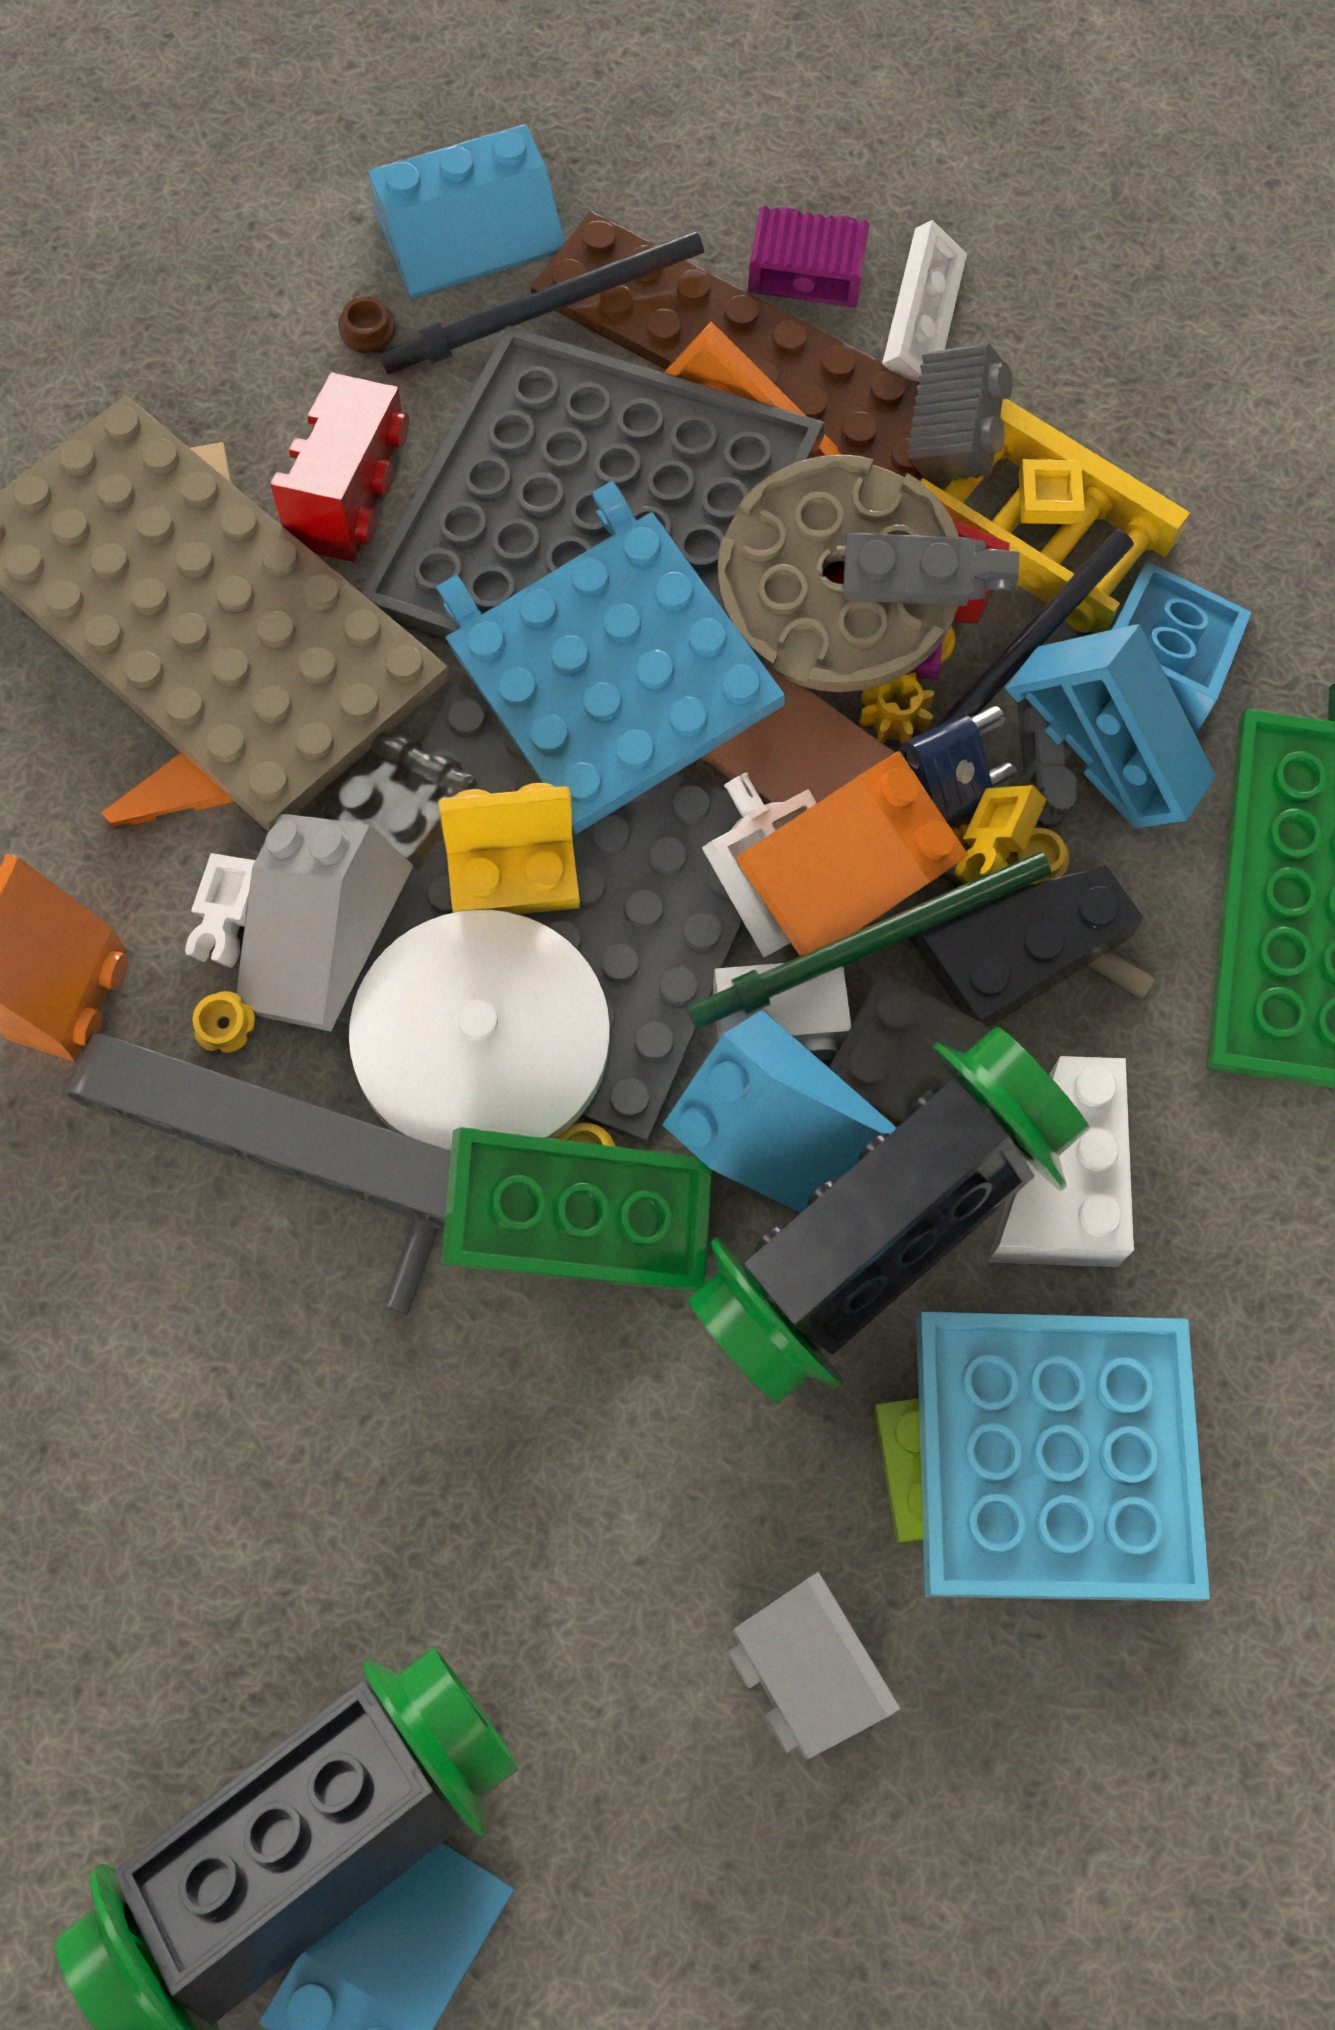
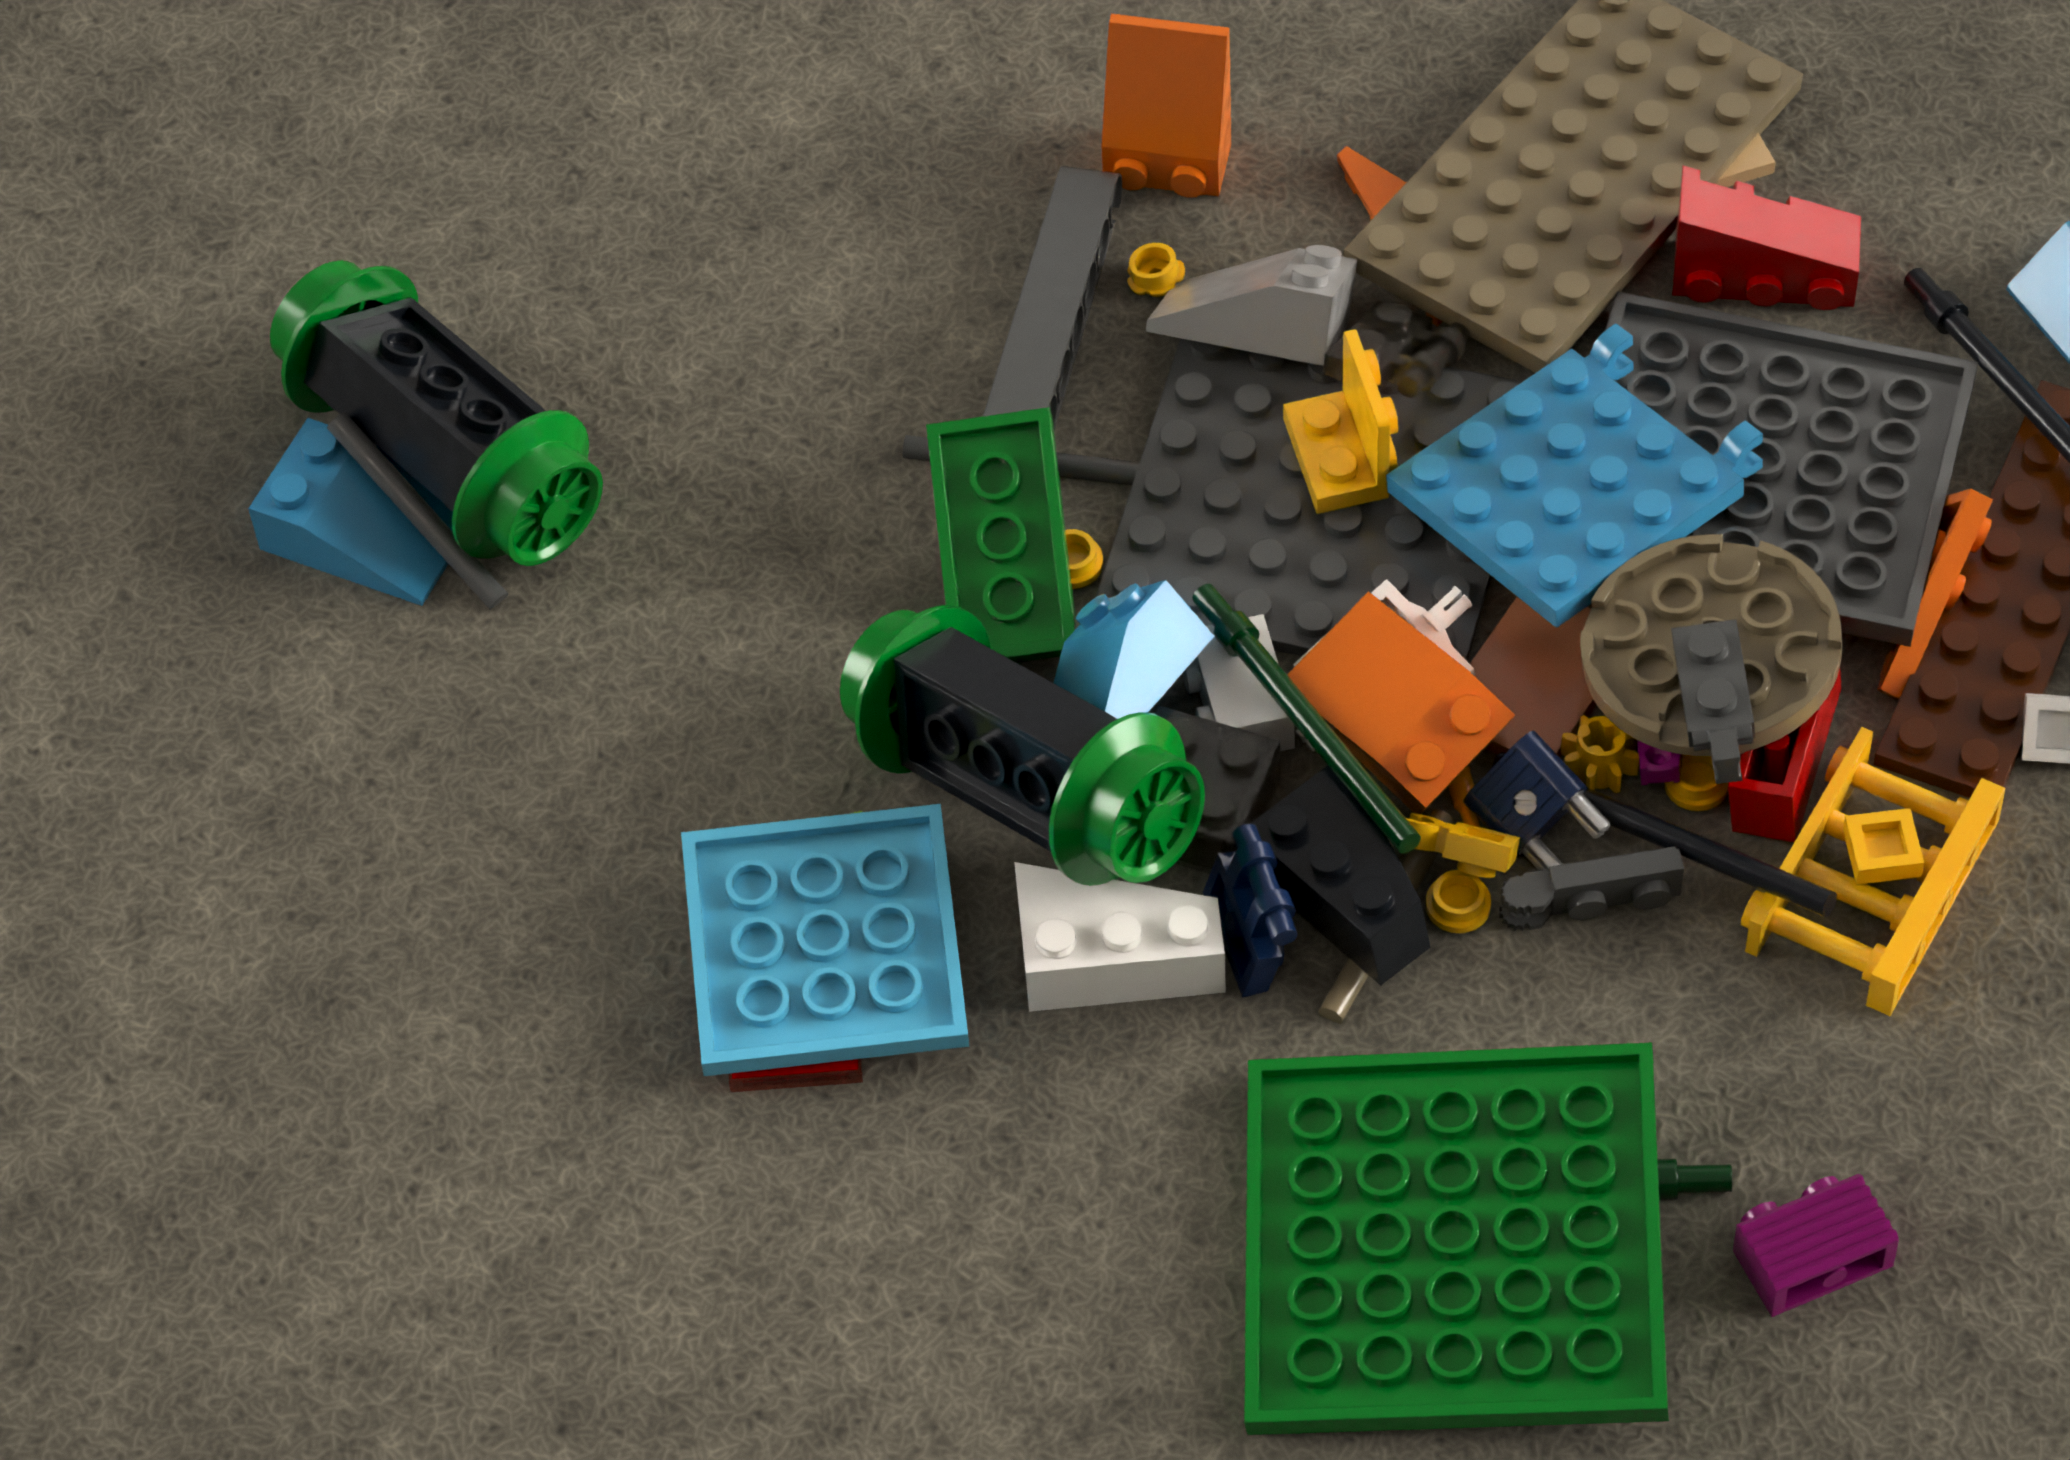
camera: 90 degrees right, 15 degrees down
(223, 906) = (1237, 248): white plate -> none
(366, 325) = (1952, 252): reddish brown plate -> none
(405, 1890) = (416, 509): none -> dark grey bar
(479, 1029) = (1170, 450): white dish -> none
(810, 1670) = (616, 761): light grey slope -> none
(959, 413) = (1955, 744): dark grey brick -> none
(1068, 1023) = (1252, 910): none -> dark blue plate
(1122, 720) = (1599, 925): dark azure wedge -> none
(1189, 633) = (1726, 992): dark azure slope -> none

